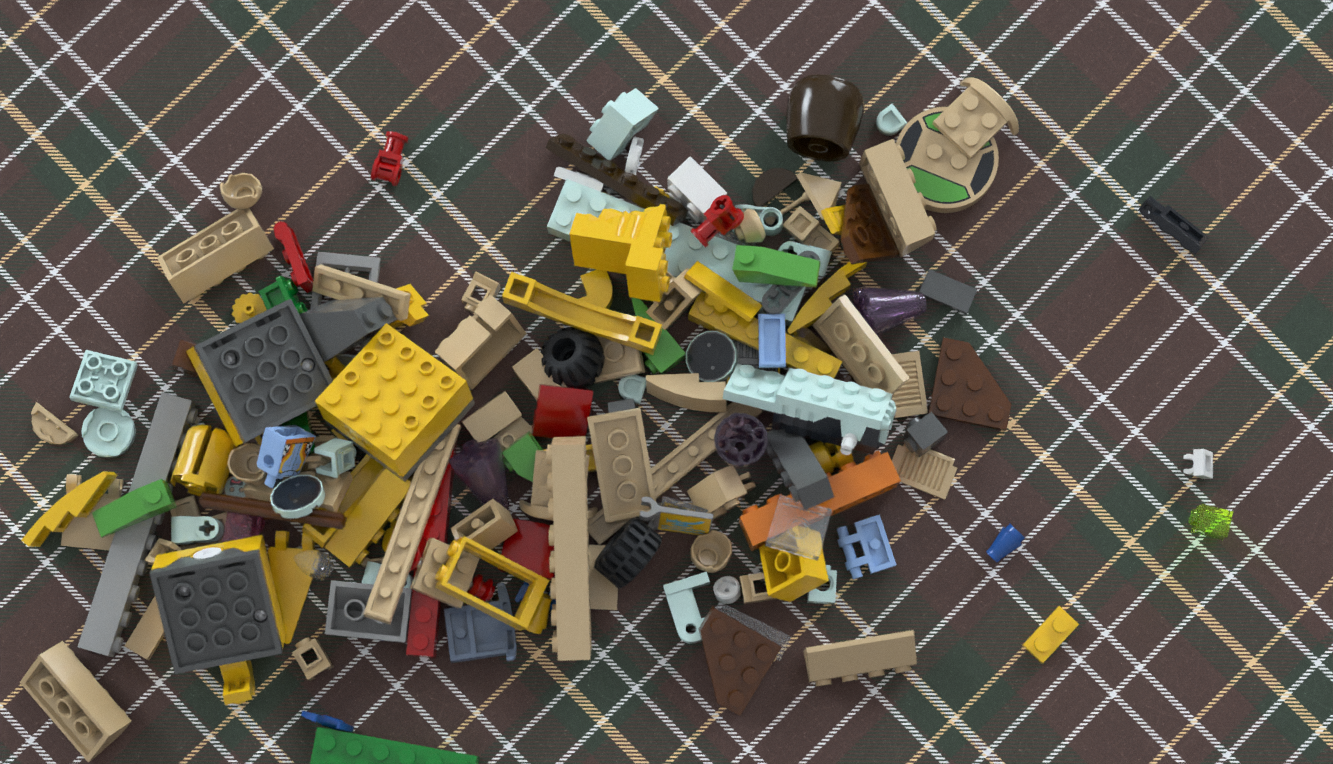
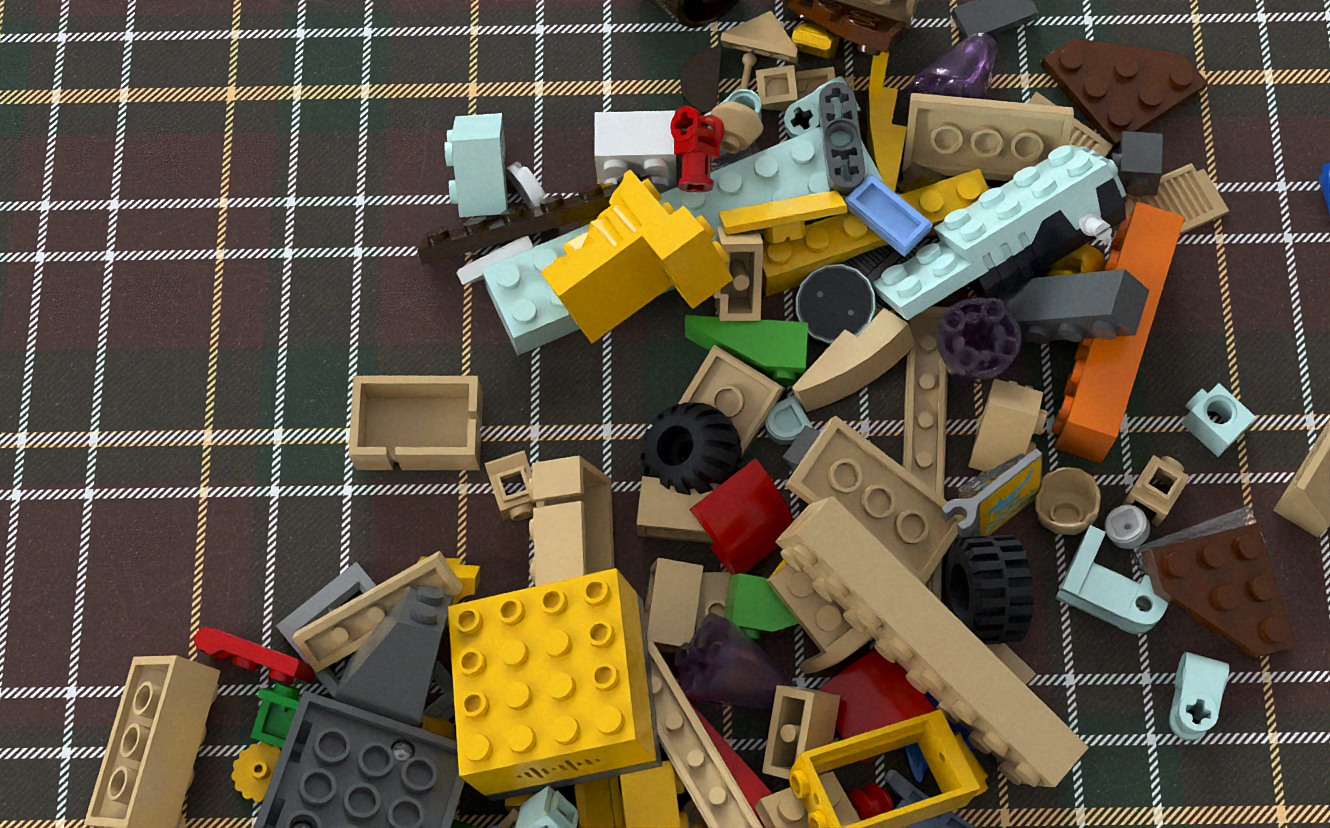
camera: 45 degrees left, 10 degrees down
(241, 191) = (114, 645): tan hair -> none
(390, 161) = (259, 448): red connector -> none
(466, 221) = (416, 422): none -> tan piece
(598, 288) = (643, 358): yellow brick -> none
(605, 323) = (590, 417): yellow arch -> none
(677, 687) = (1200, 689): none -> light aqua piece
(774, 267) = (810, 132): bright green slope -> none
(791, 575) = (1174, 417): yellow brick -> none
(798, 529) = (1146, 365): clear tile -> none
(873, 543) = (1217, 324): light blue plate -> none

